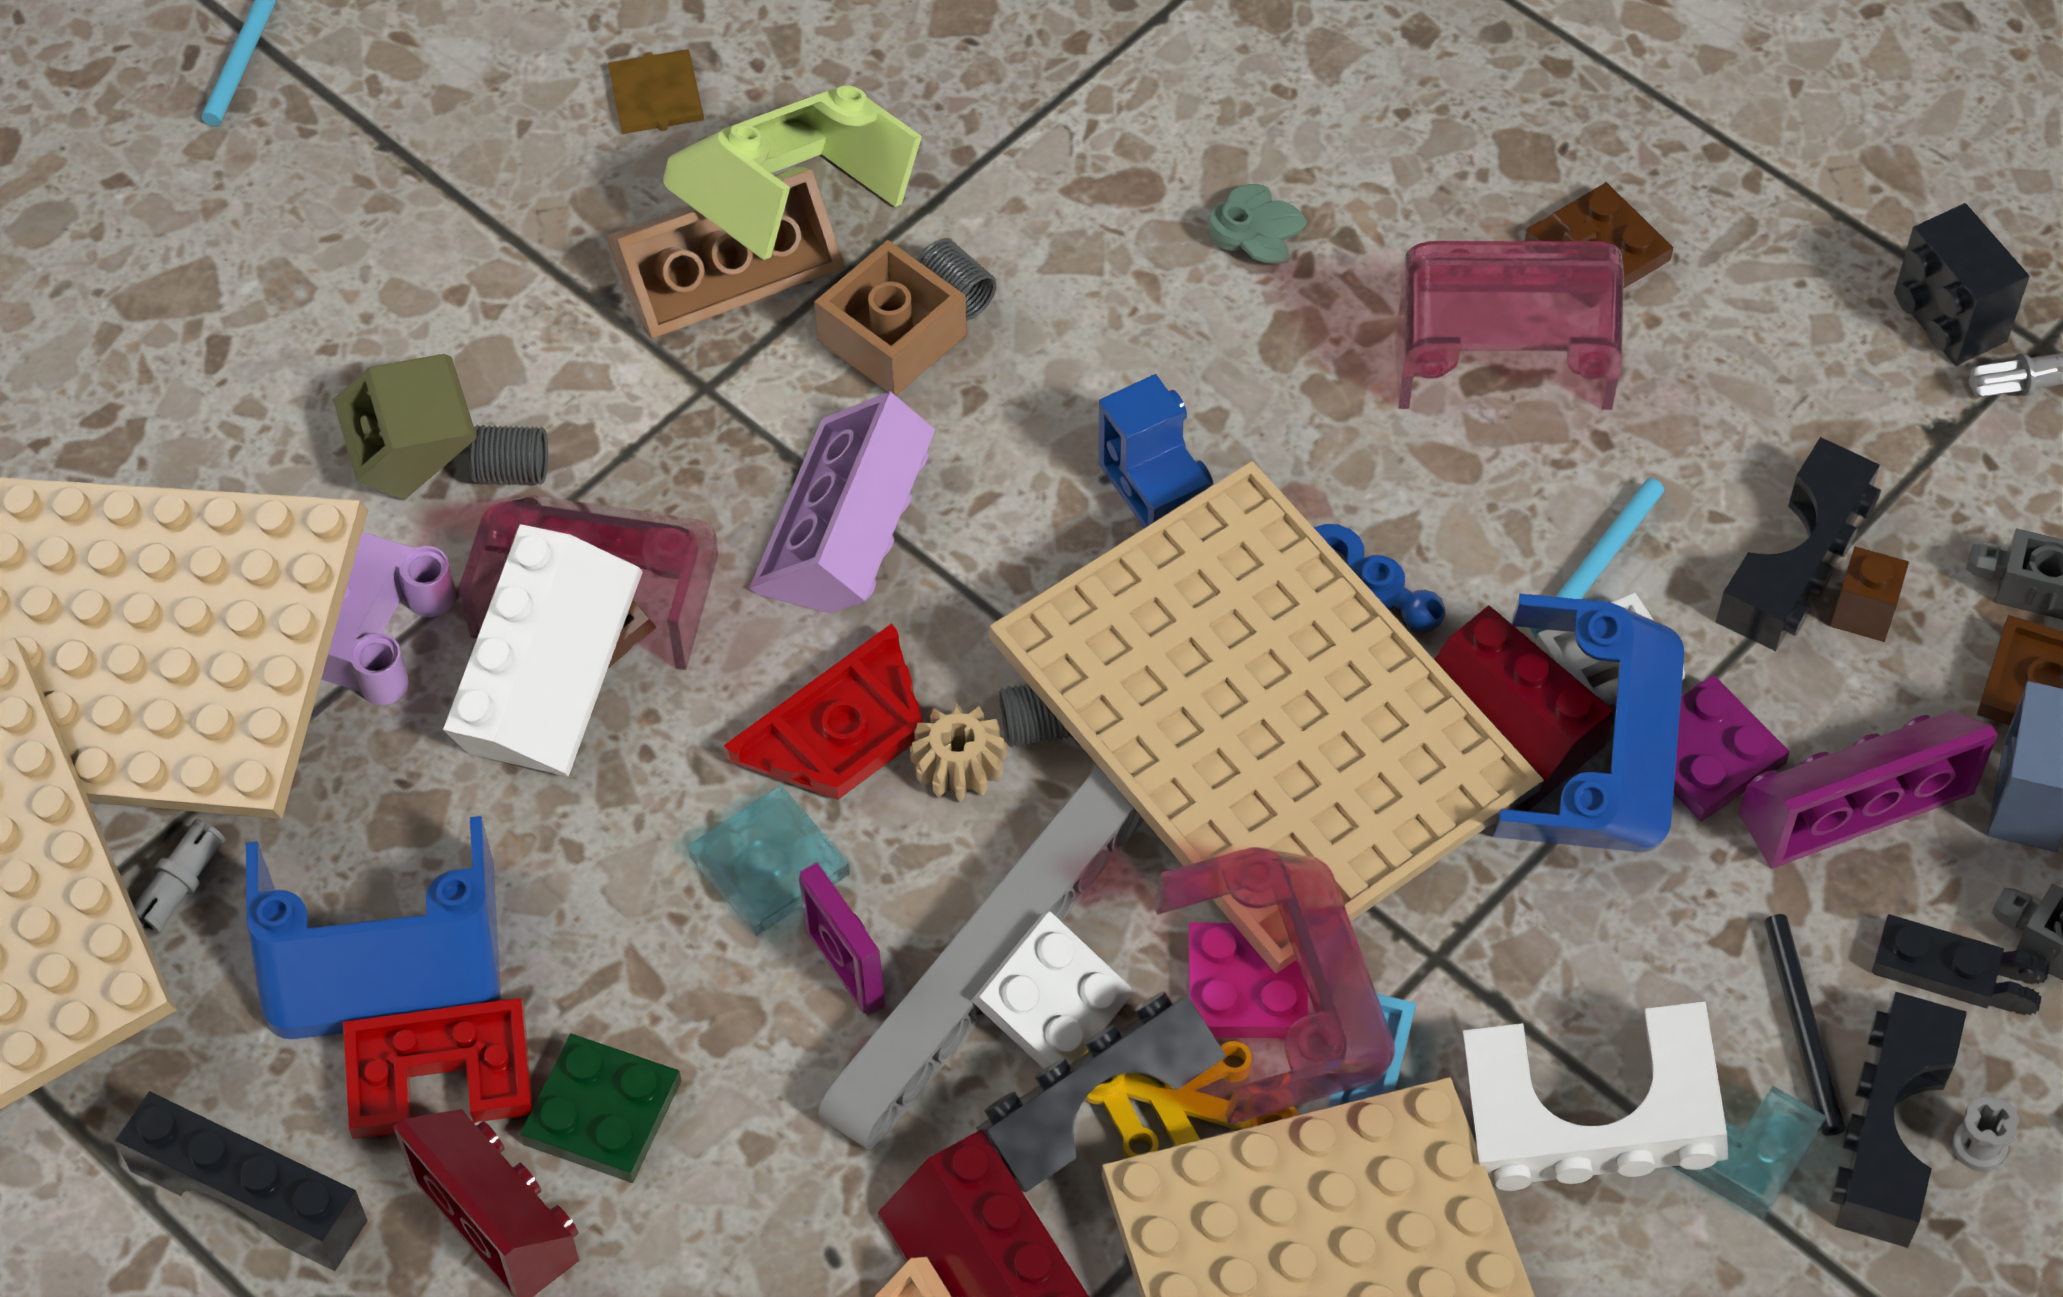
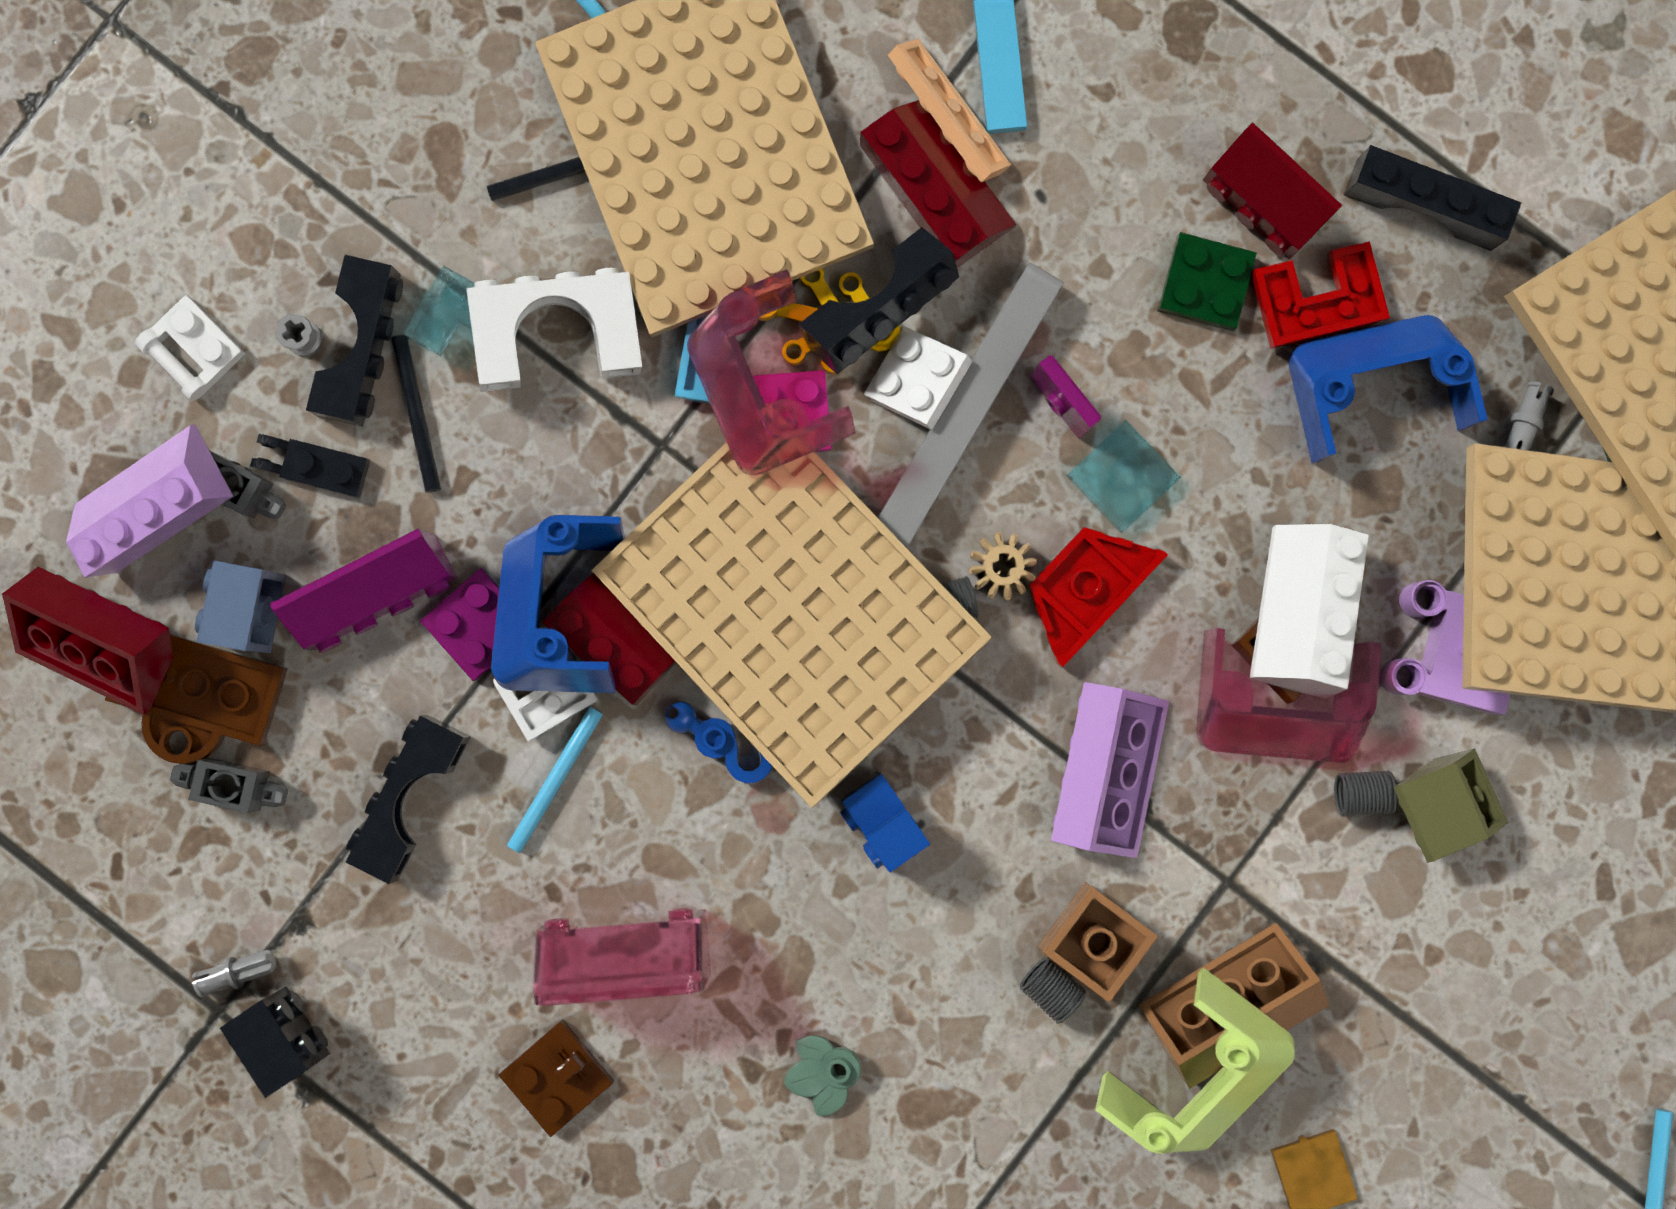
camera: 170 degrees right, 30 degrees up
(1869, 594) = (358, 755): reddish brown brick -> none

